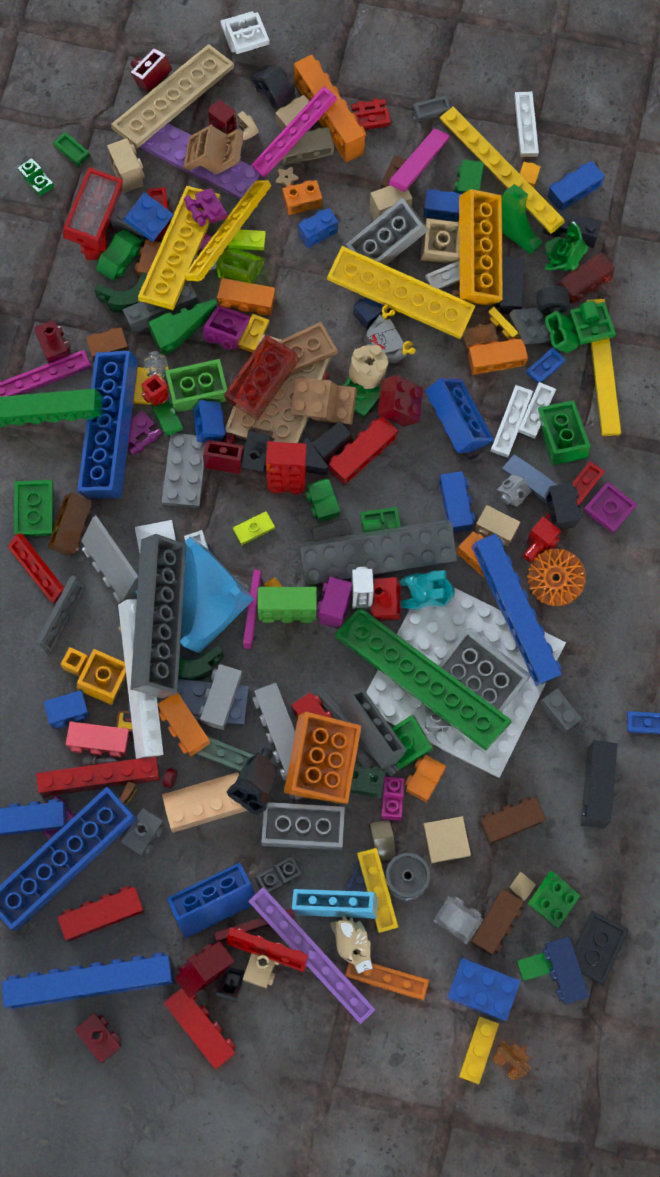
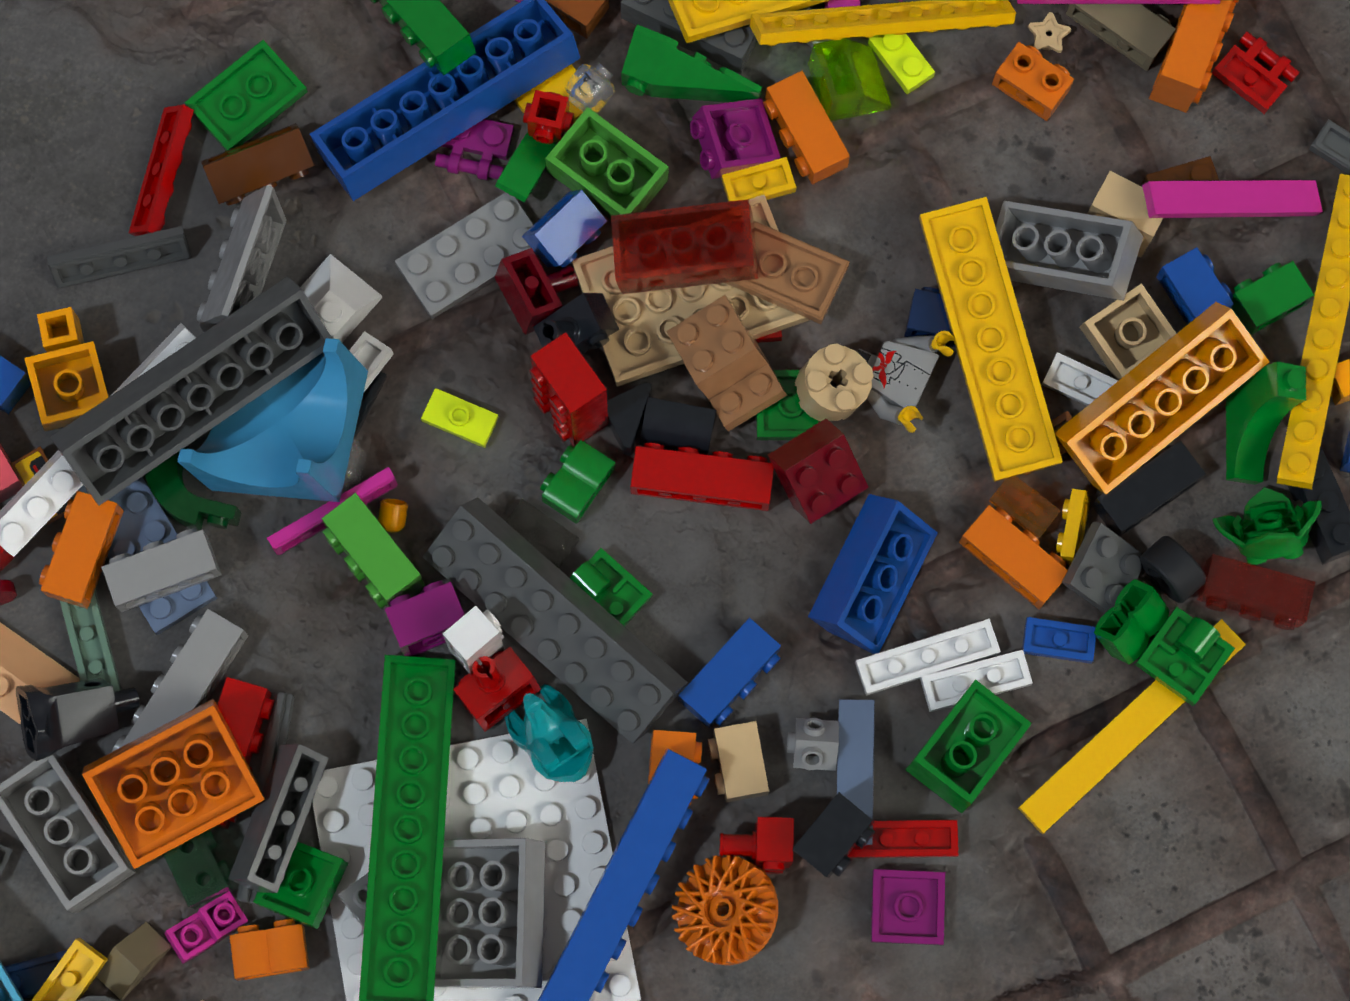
camera: 50 degrees right, 5 degrees up
(318, 227) = (1002, 141): blue brick -> none

